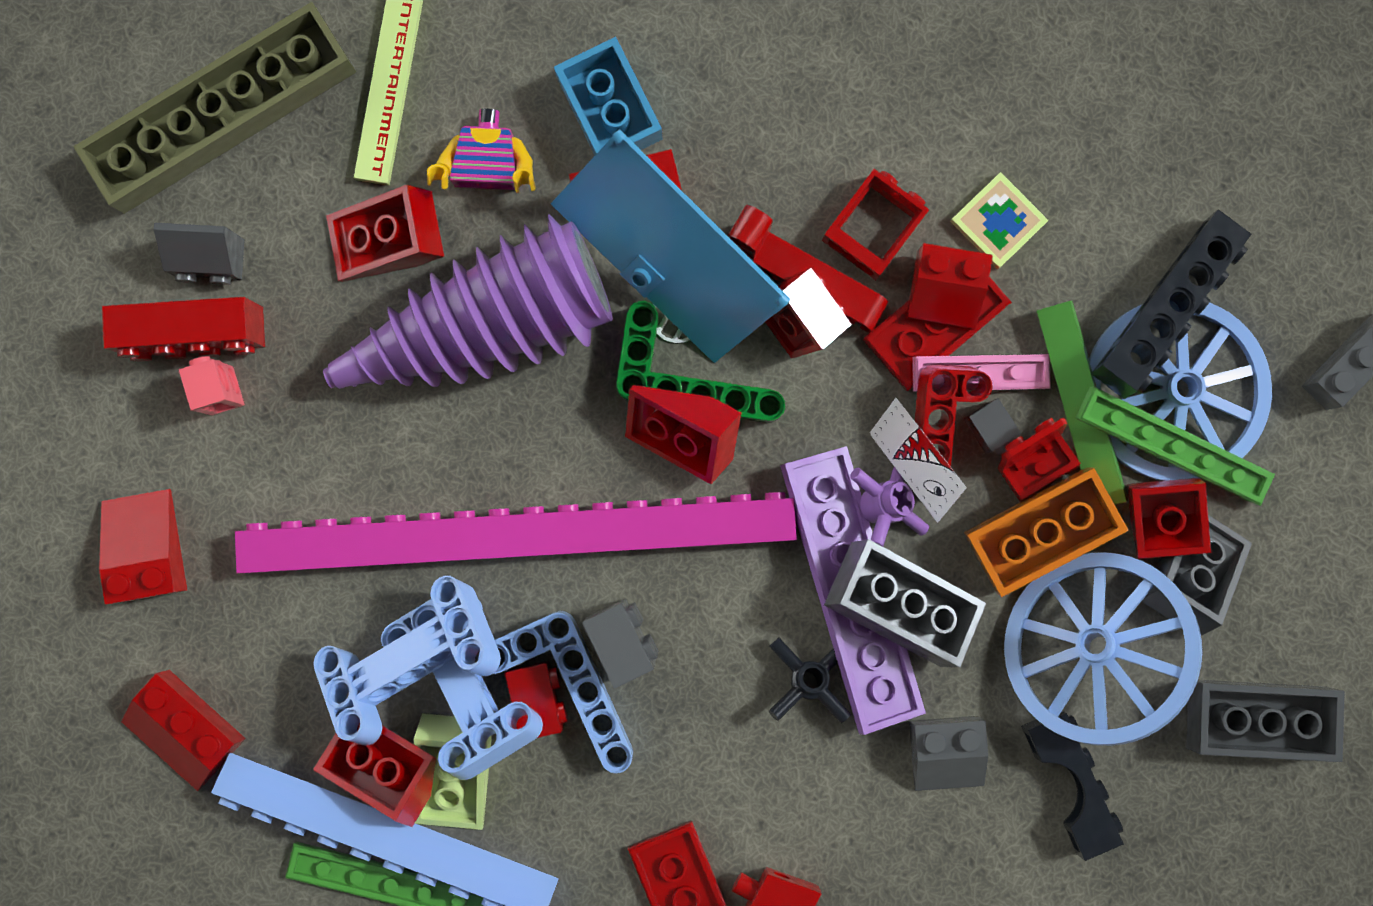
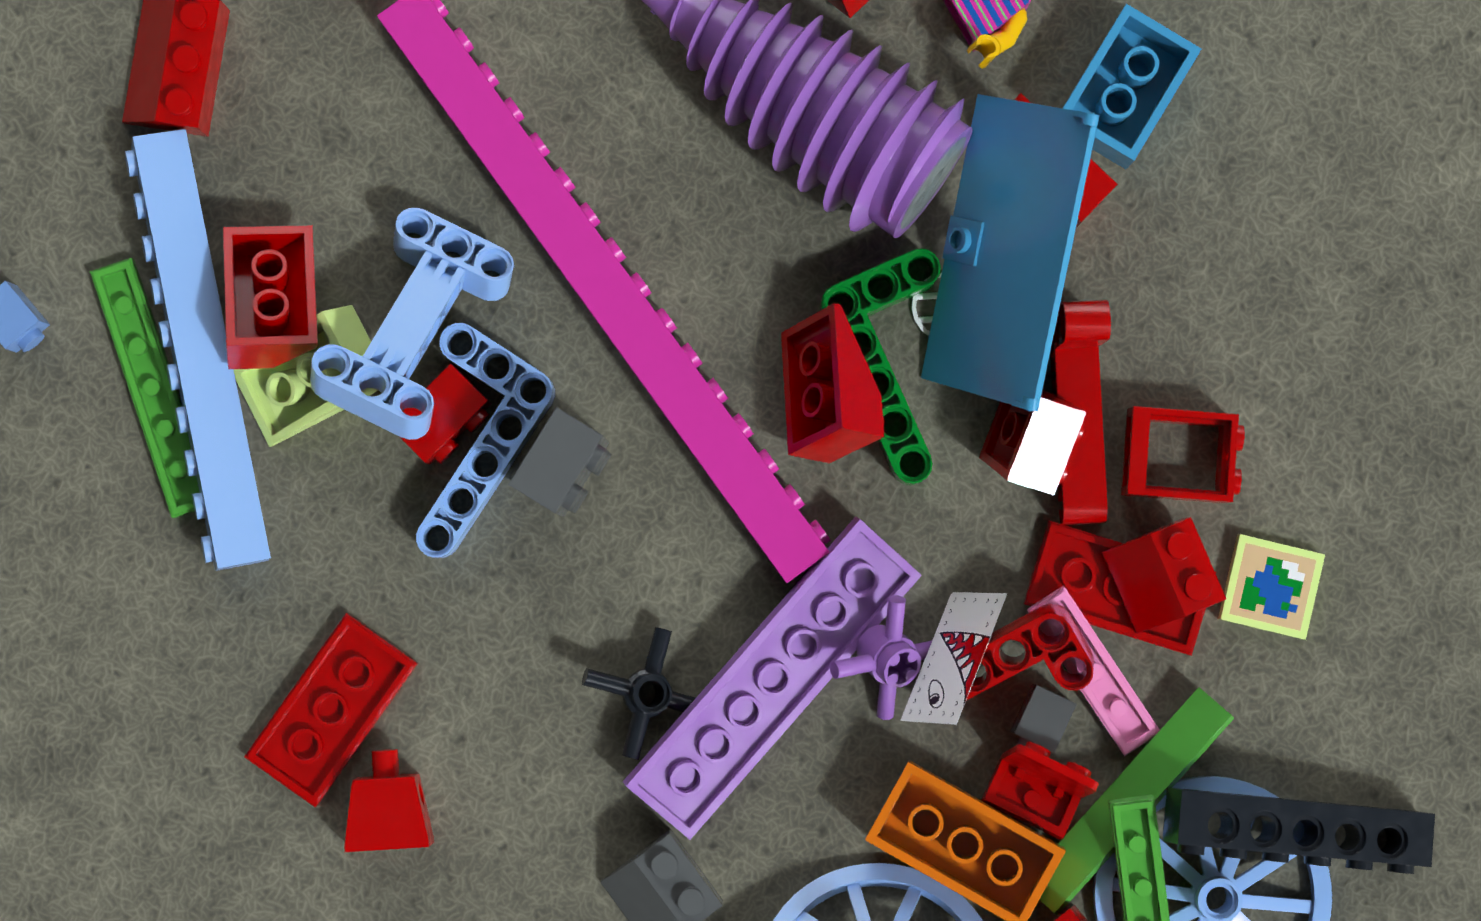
camera: 55 degrees right, 0 degrees up
(405, 661) = (398, 250): light blue beam -> none
(905, 603) = (792, 741): dark grey brick -> none

